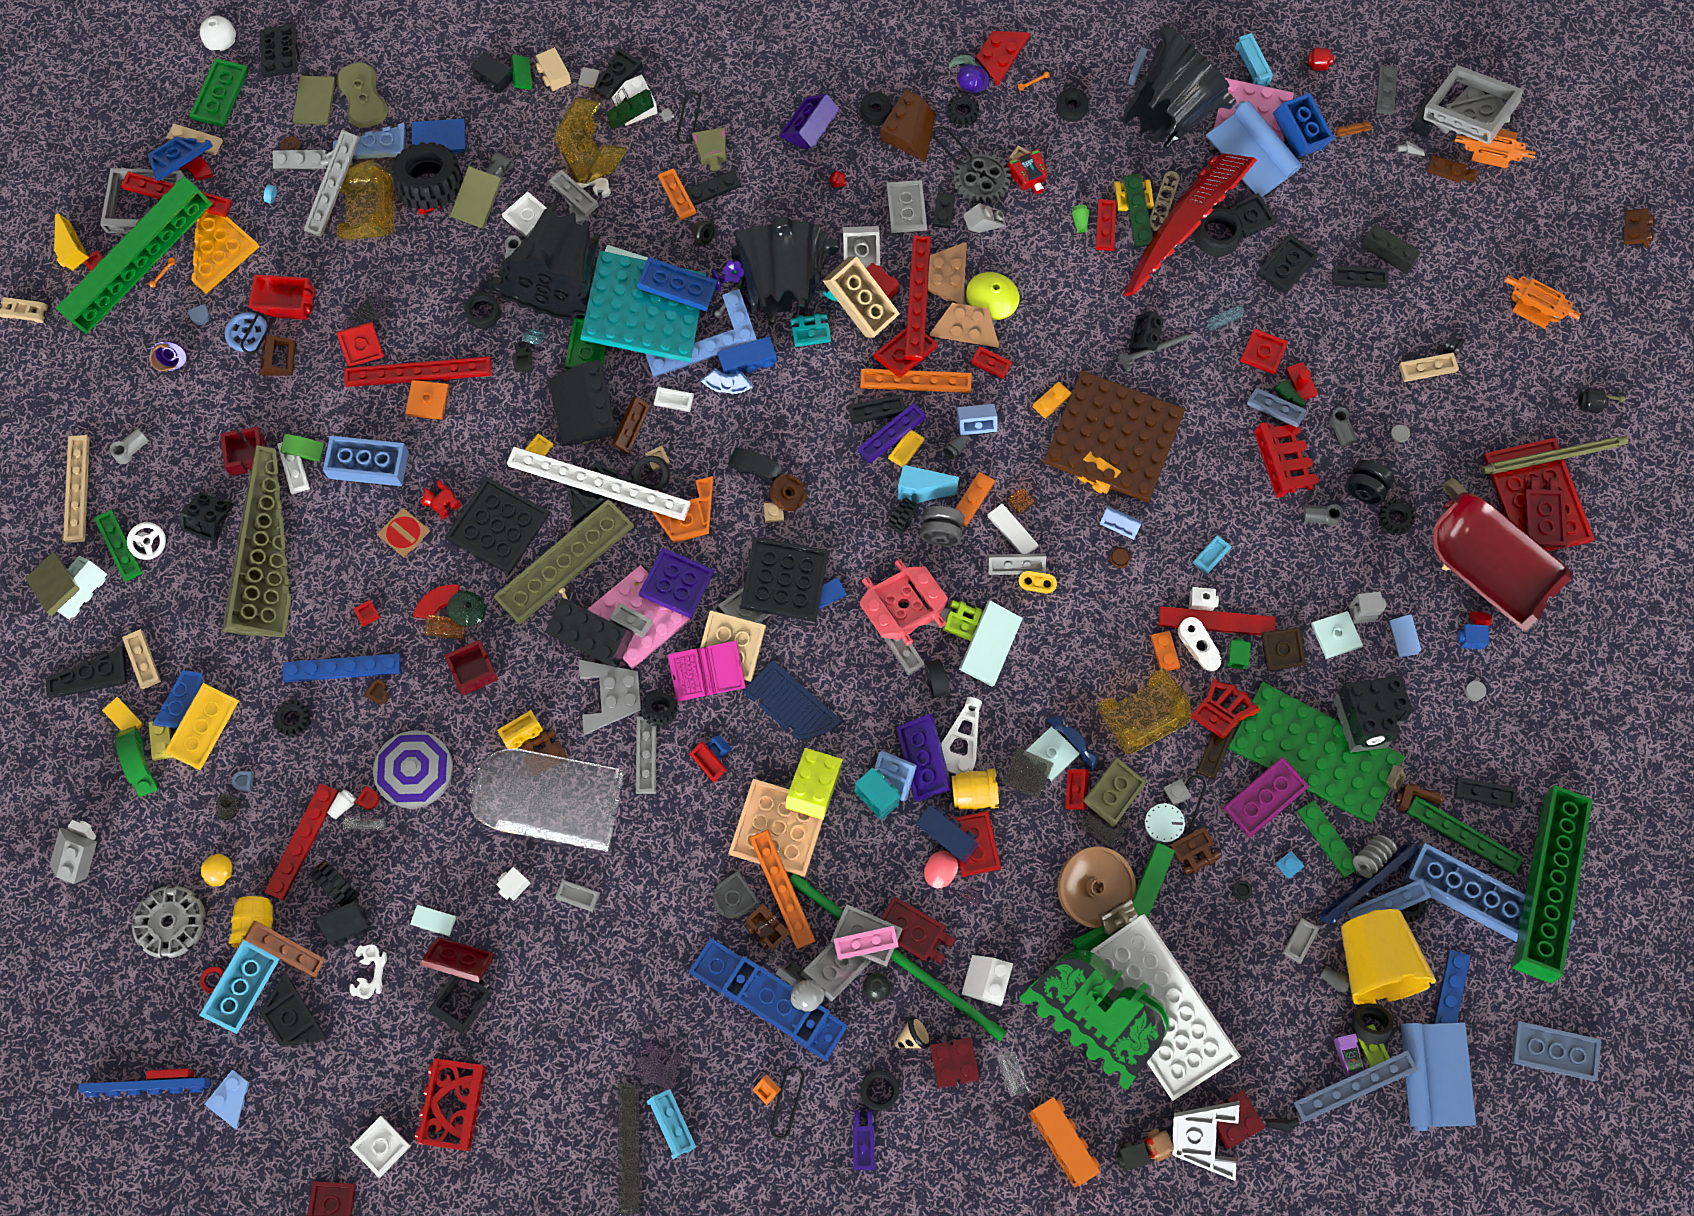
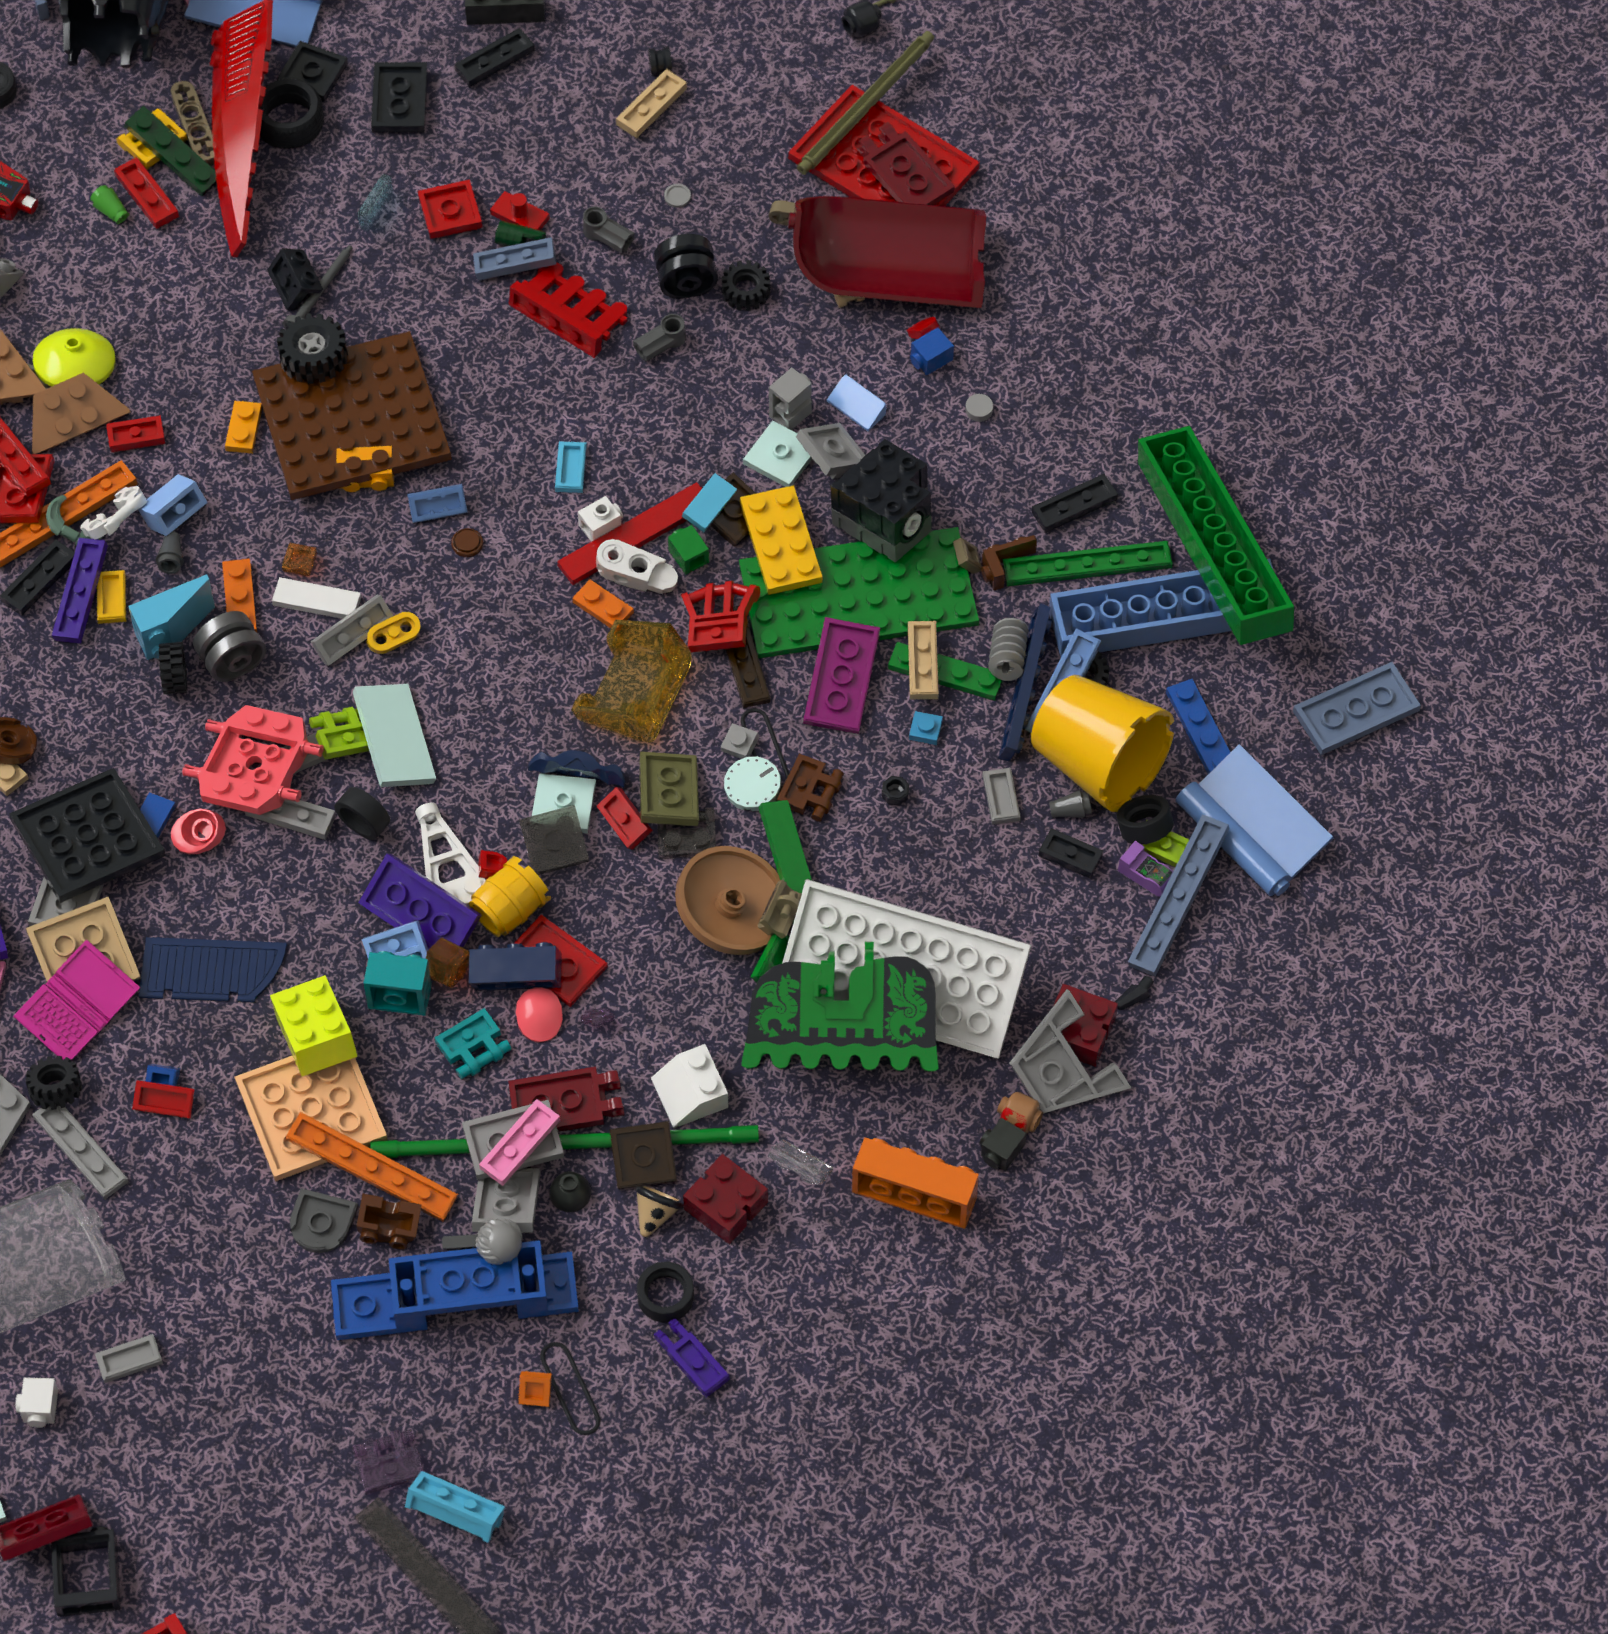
camera: 40 degrees left, 10 degrees down
(837, 617) = (185, 831): none -> coral hat
(894, 853) = (469, 1036): none -> teal plate
(908, 385) = (56, 522): none -> sand green piece
(914, 800) = (447, 962): none -> clear orange panel
(930, 999) = (643, 1155): none -> dark brown tile
(956, 400) = (126, 501): none -> white helmet
(984, 760) = (490, 863): none -> red tile
(1122, 373) = (312, 348): none -> black wheel
(1271, 636) = (709, 502): none -> medium azure tile
(1294, 689) = (781, 540): none -> yellow plate
(1313, 1008) = (1070, 853): none -> black plate
(1319, 824) = (922, 660): none -> tan tile
(1368, 655) = (831, 448): none -> light grey hinge

